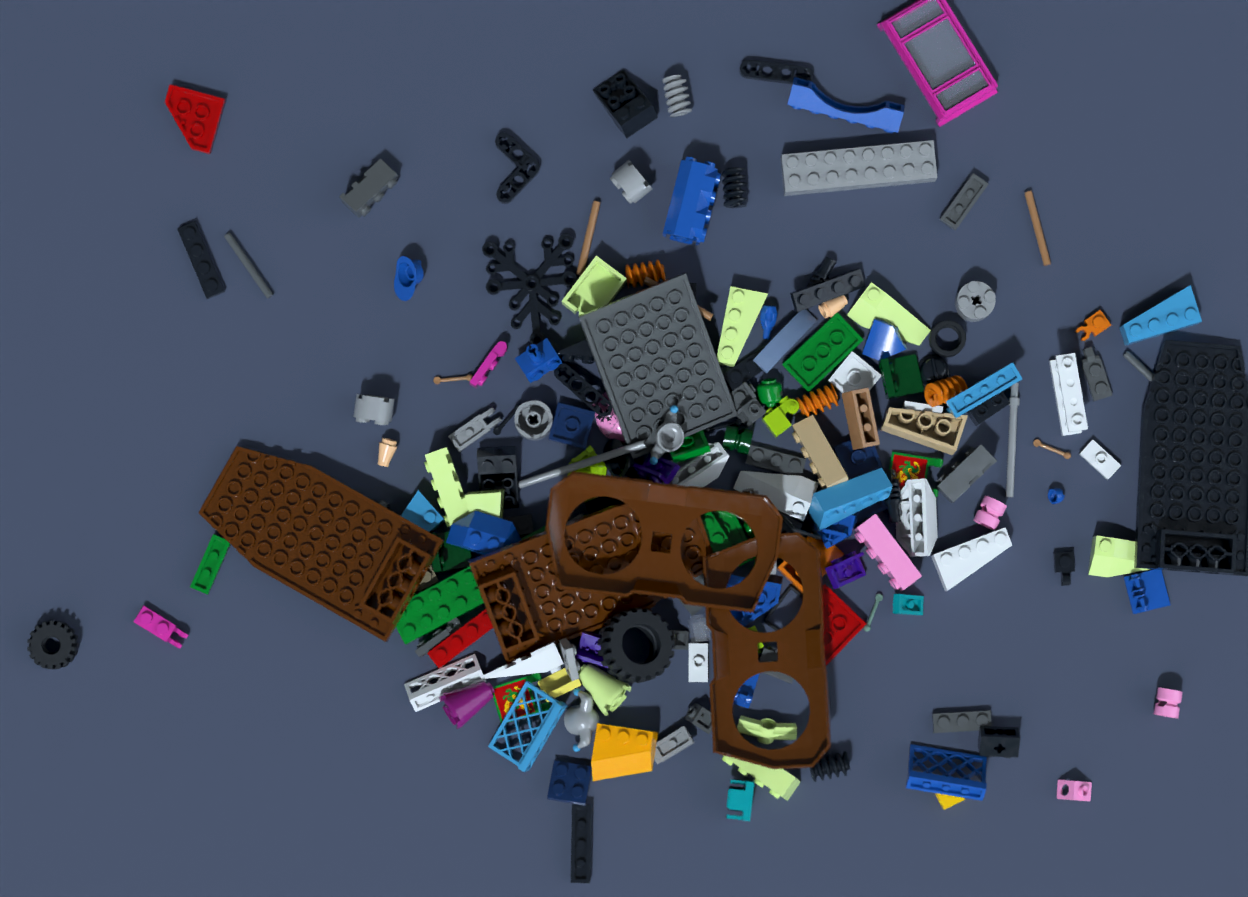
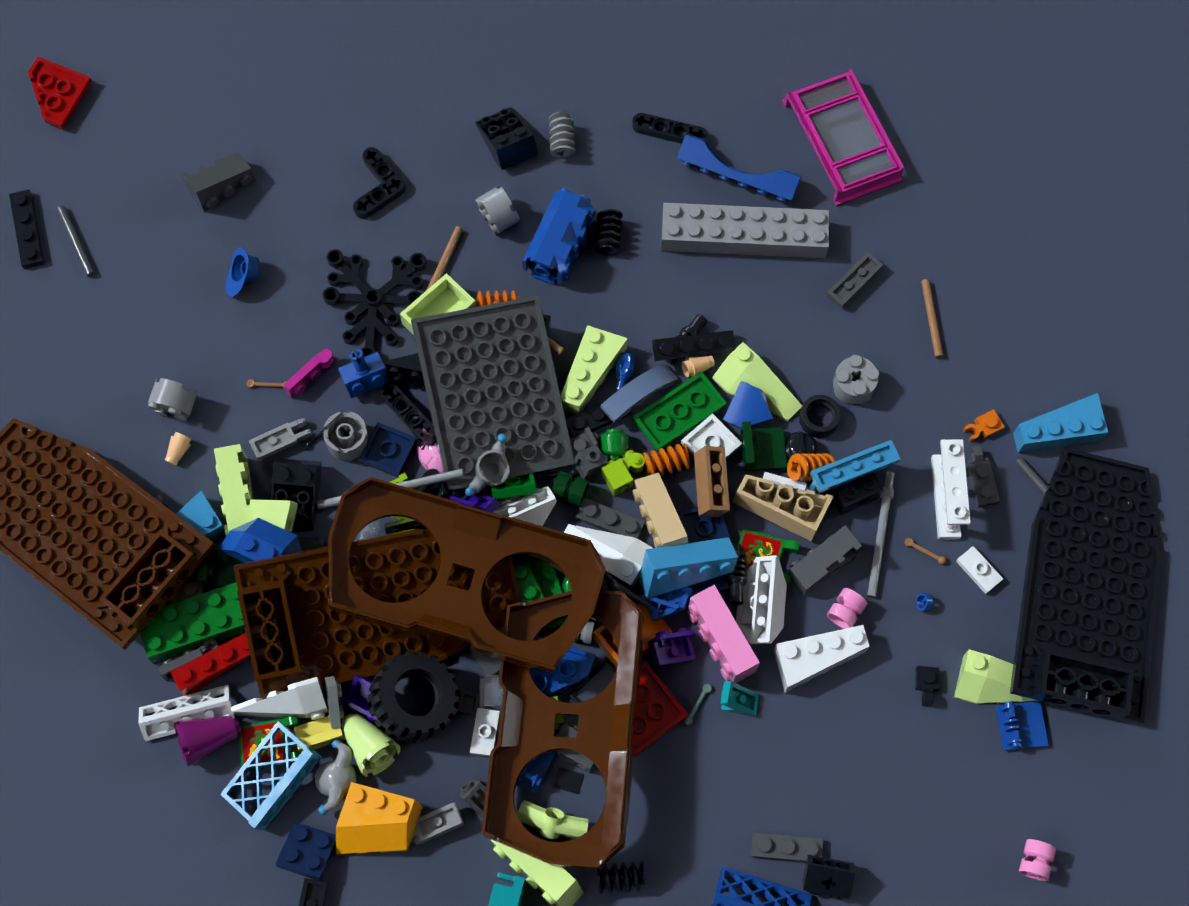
camera: 10 degrees right, 15 degrees down
(774, 692) = (568, 780): none -> black sticker

